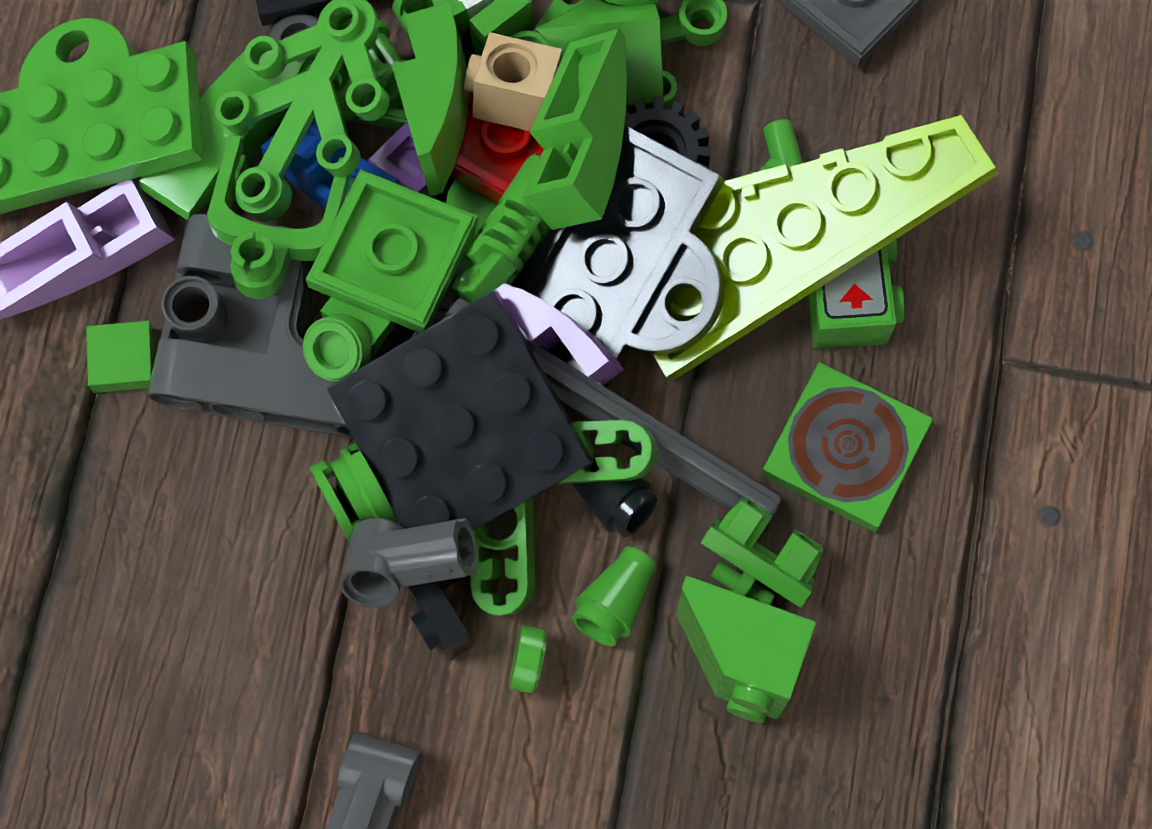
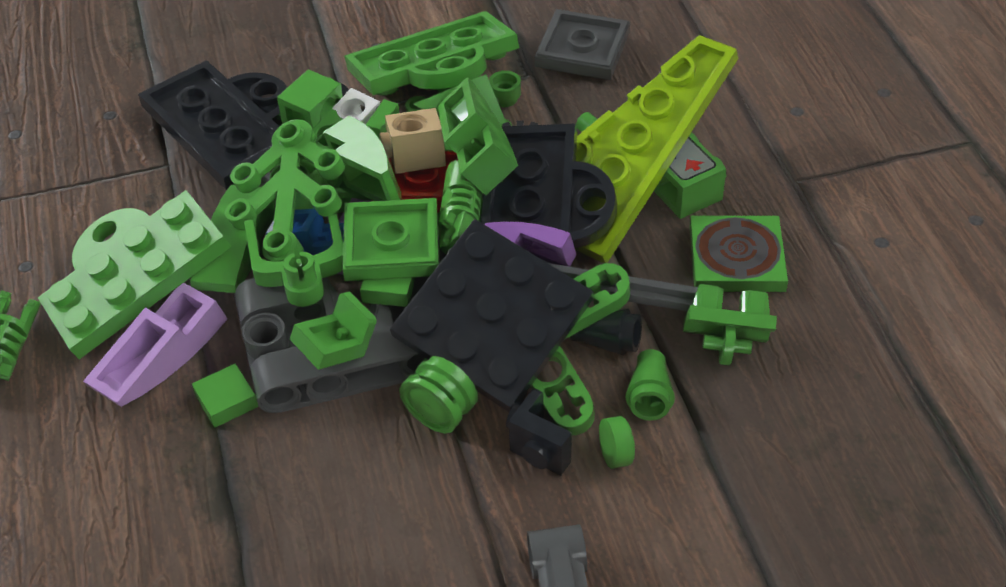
camera: 25 degrees left, 25 degrees down
(256, 367) = (336, 336): none -> bright green bracket
(336, 346) = (384, 301): bright green tile -> none
(390, 557) = (506, 394): dark grey piece -> none
(744, 647) = (754, 361): bright green slope -> none

